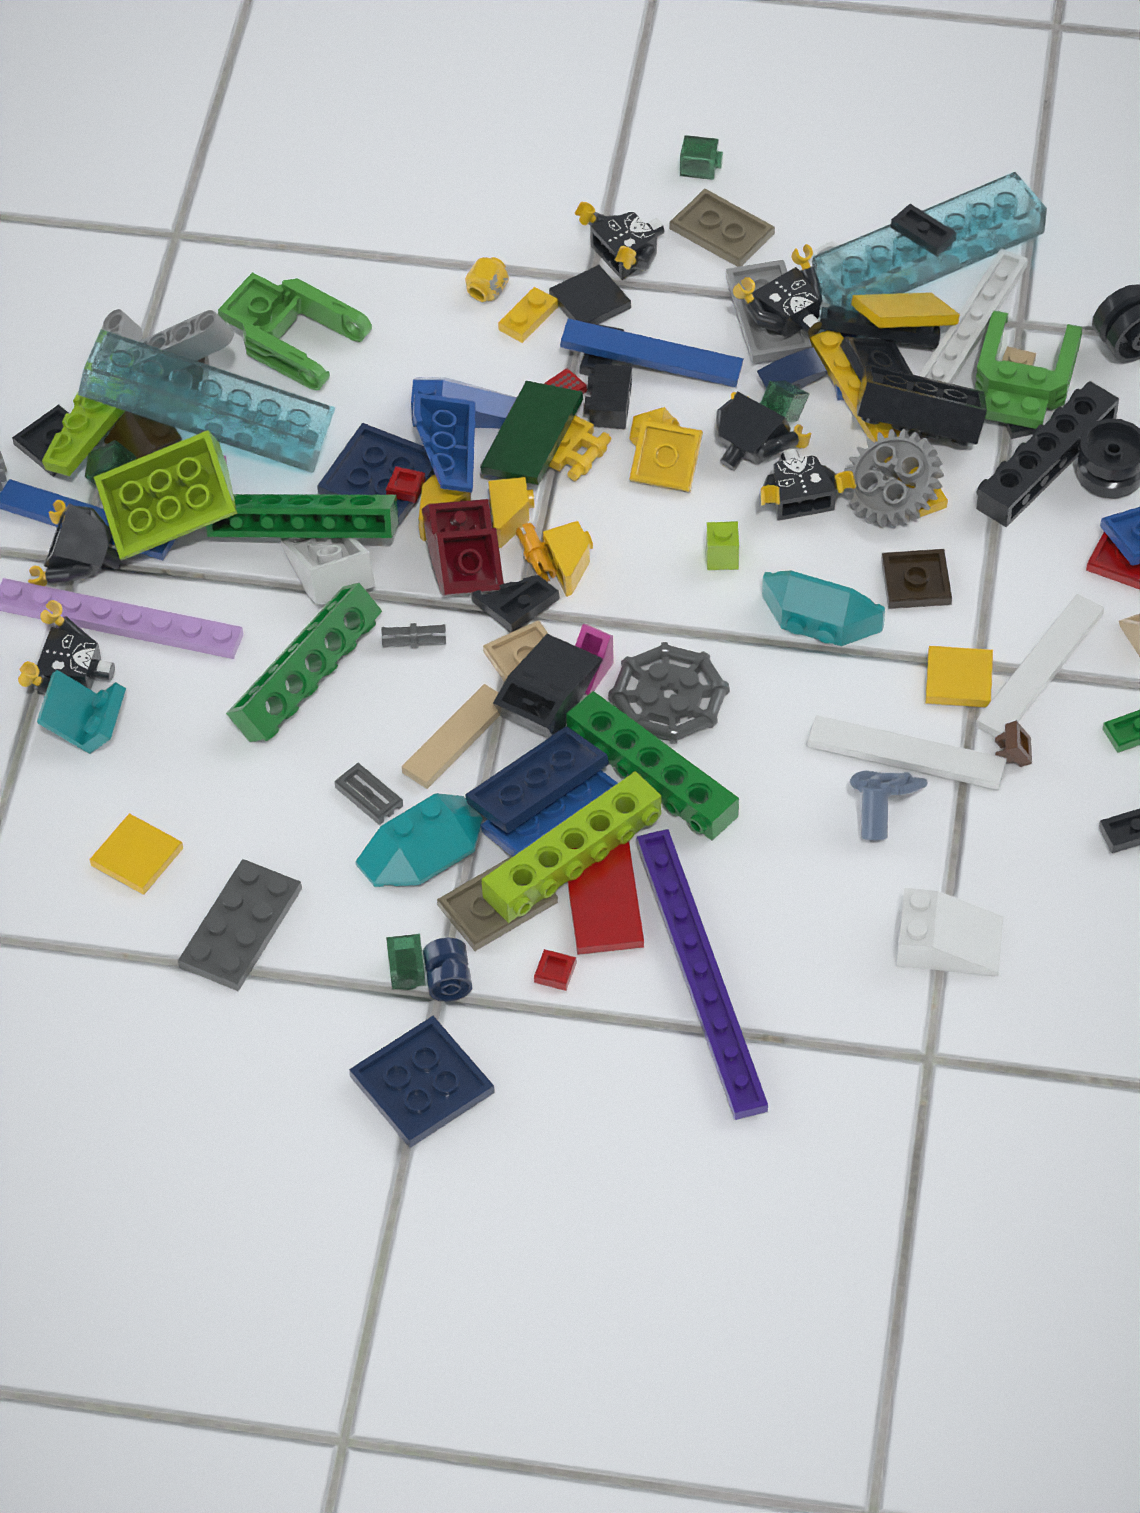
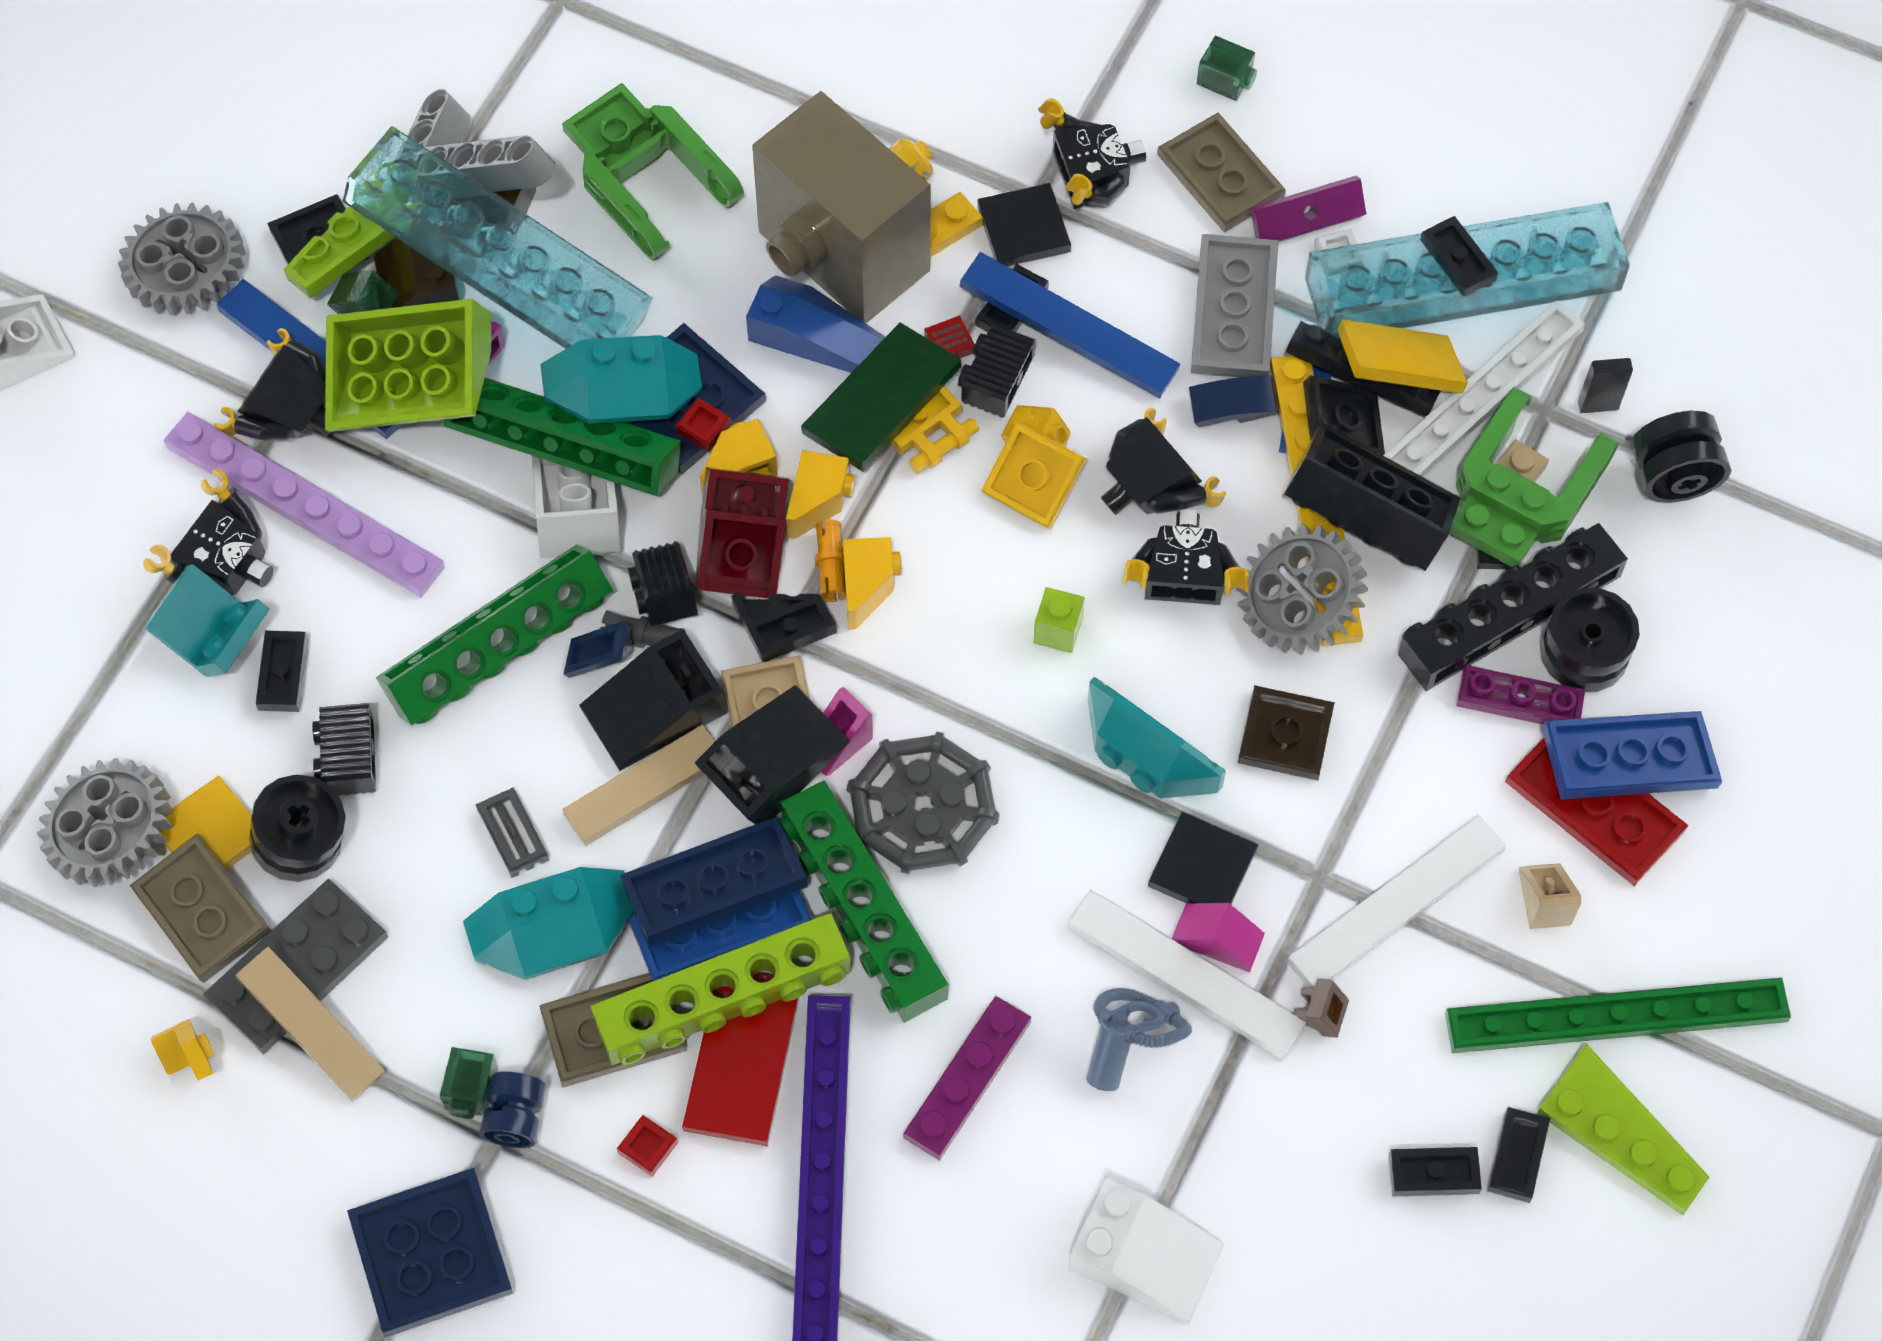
camera: 15 degrees right, 10 degrees up
(55, 865) = (102, 809): none -> light grey gear
(149, 731) = (281, 671): none -> black plate
(152, 904) = (200, 908): none -> dark tan tile
(181, 996) = (182, 1048): none -> yellow bracket
(208, 827) = (297, 828): none -> black wheel
(221, 769) = (346, 748): none -> black brick
(270, 954) = (310, 1024): none -> tan tile
(332, 465) = (621, 379): none -> teal wedge
(386, 652) = (598, 649): none -> dark blue slope
(419, 596) = (662, 584): none -> black brick
(443, 674) = (654, 701): none -> black slope
(448, 438) = (770, 378): blue wedge -> none
(458, 307) = (841, 208): none -> dark tan brick
(774, 861) = (967, 1078): none -> magenta plate
(785, 399) = (1205, 440): clear green brick -> none
(788, 301) = (1258, 305): black torso -> none
(809, 230) = (1327, 203): none -> magenta tile
(890, 679) = (1202, 863): none -> black tile
(921, 718) = (1219, 933): none -> dark pink slope
(959, 676) = (1289, 887): yellow tile -> none
(1059, 292) = (1605, 385): none -> black tile
(1072, 512) = (1497, 694): none -> magenta tile

